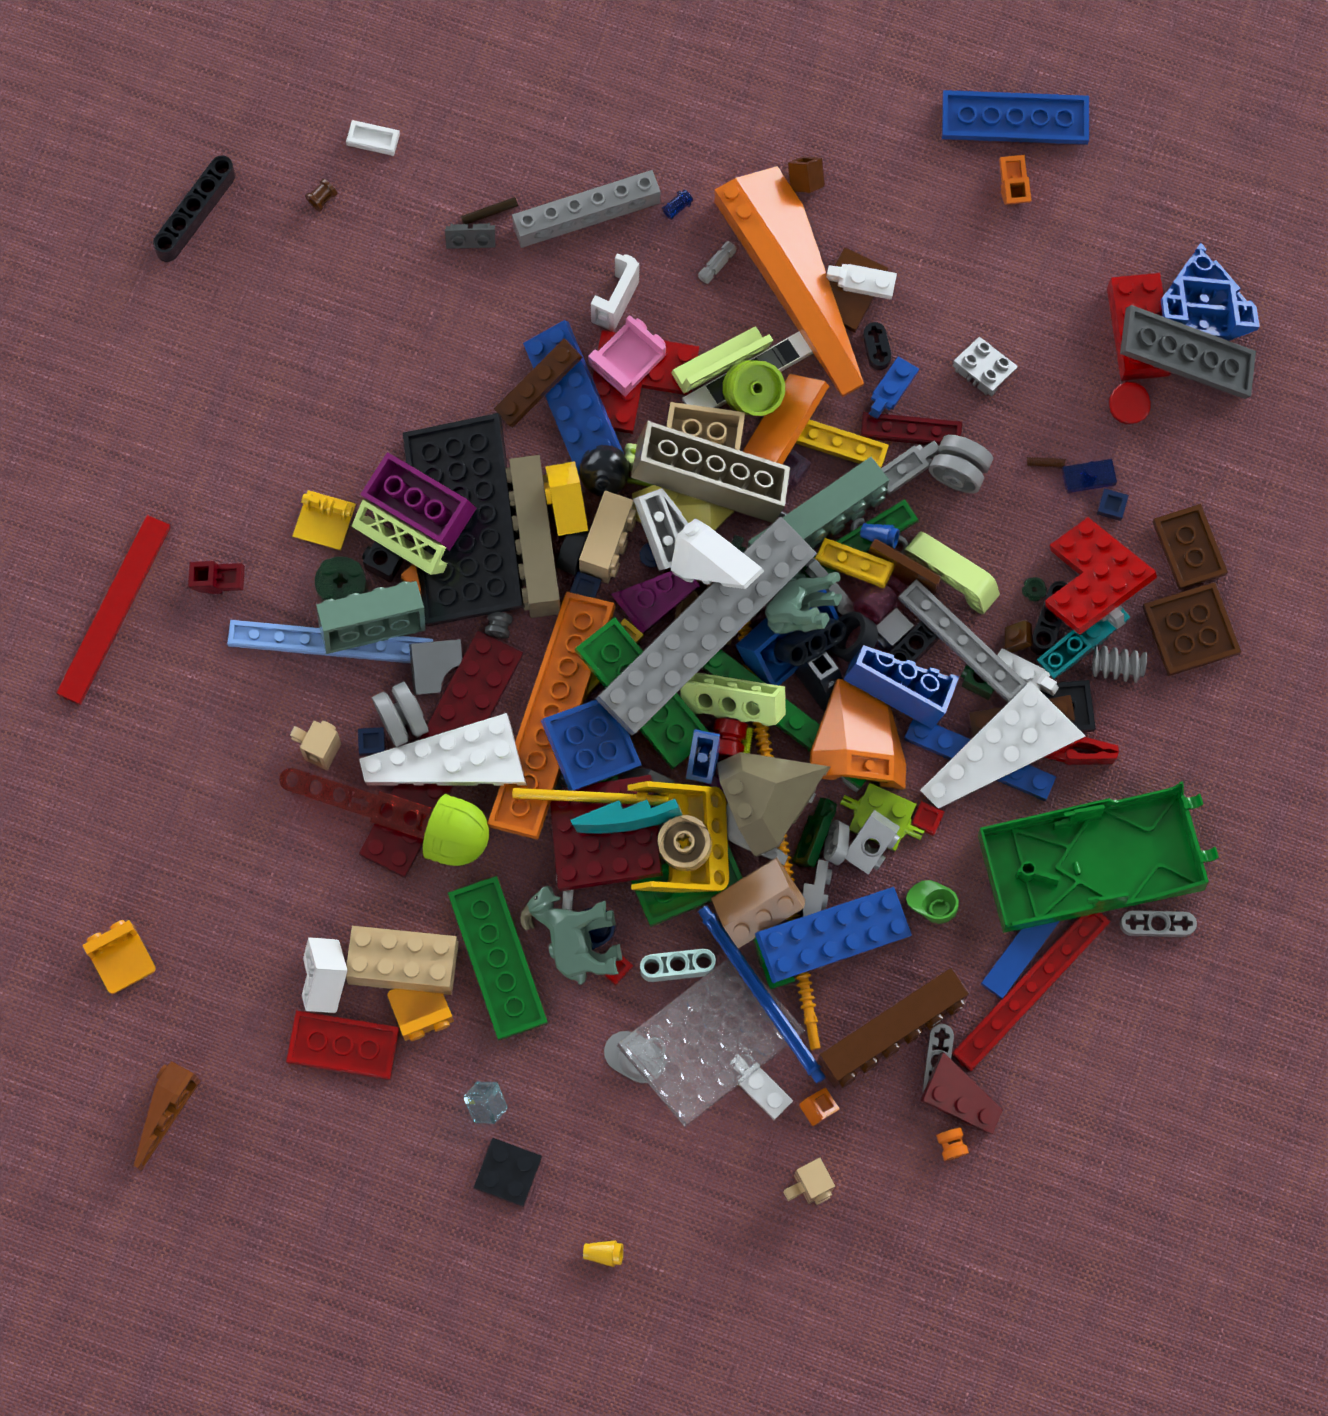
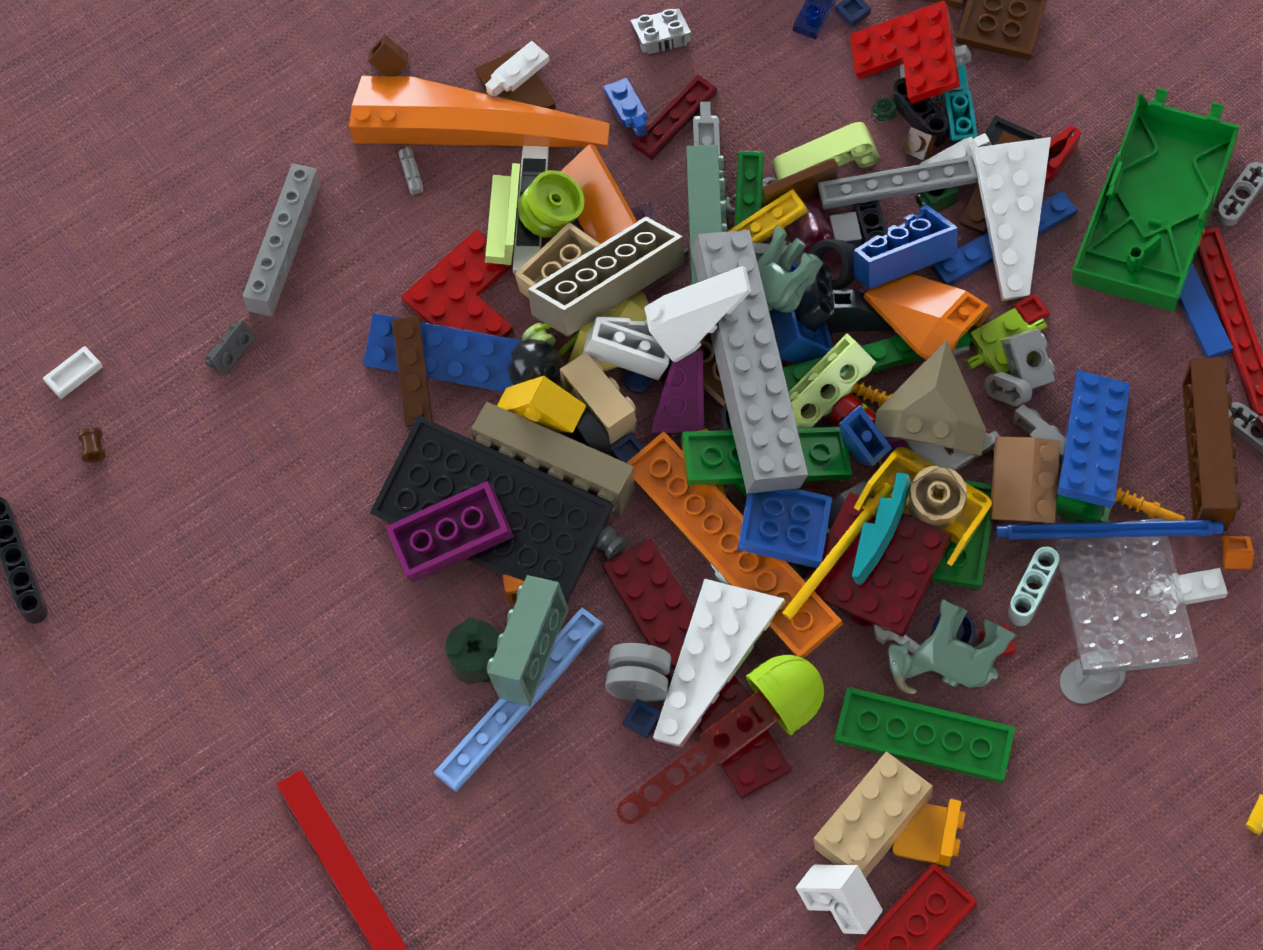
camera: 50 degrees left, 10 degrees down
(215, 578) = (384, 759): dark red brick -> none
(319, 744) = (615, 761): tan brick -> none
(324, 520) = (399, 631): yellow hinge -> none
(386, 571) = (480, 592): black brick -> none
(396, 542) = (477, 575): yellowish green fence -> none
(431, 662) = (606, 619): dark grey tile -> none
(485, 1102) = (1056, 829): clear light blue panel -> none
(489, 211) = (218, 319): dark brown piece -> none
(508, 1172) = (1134, 851): black plate -> none
(608, 313) = (390, 274): white panel -> none
(628, 355) = (444, 284): bright pink panel -> none
(677, 204) = (334, 169): clear blue pin -> none
(814, 834) = (991, 407): dark green hinge -> none
(841, 443) = (652, 171): yellow plate -> none
(871, 347) = (581, 97): black beam -> none
(885, 533) = (754, 186): blue cone -> none
(933, 901) = (1111, 347): bright green cap -> none
(961, 464) = (738, 91): light grey wheel -> none
(1045, 462) = (778, 36): reddish brown piece -> none
(1118, 663) = (997, 84): light grey piece -> none

